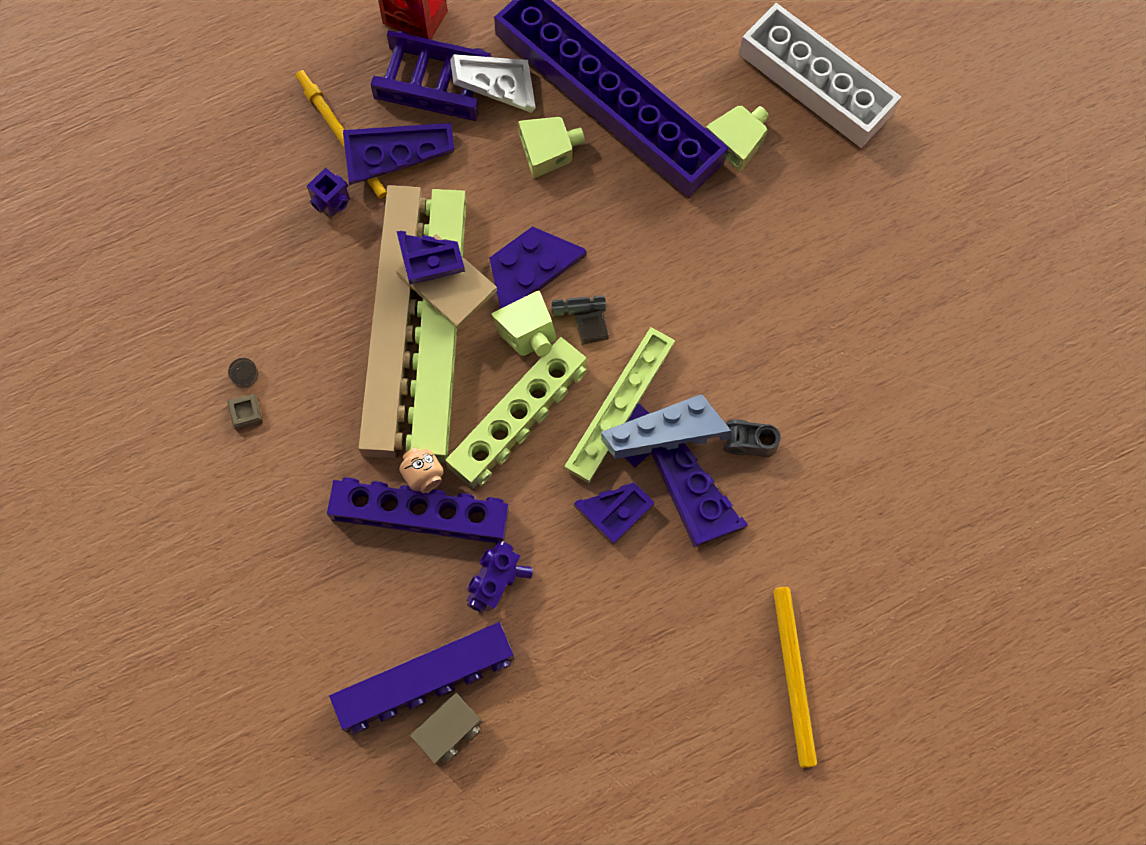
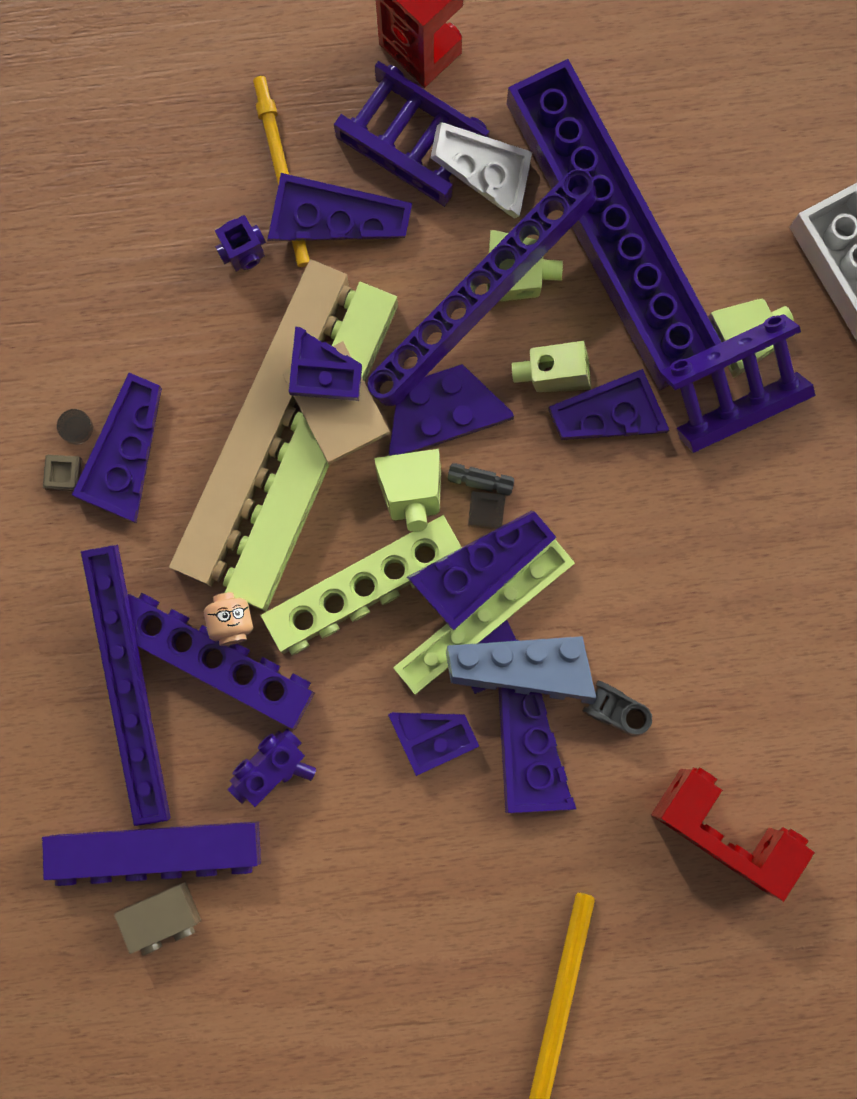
camera: 25 degrees right, 10 degrees up
(288, 382) = (120, 457): none -> dark purple wing
(356, 552) = (125, 685): none -> dark purple tile
(528, 174) = (485, 272): none -> dark purple beam
(603, 368) = (478, 570): none -> dark purple wing
(606, 203) = (568, 372): none -> yellowish green torso
(658, 222) = (610, 410): none -> dark purple wing
(767, 179) = (749, 409): none -> dark purple fence
(910, 516) = (774, 862): none -> red plate

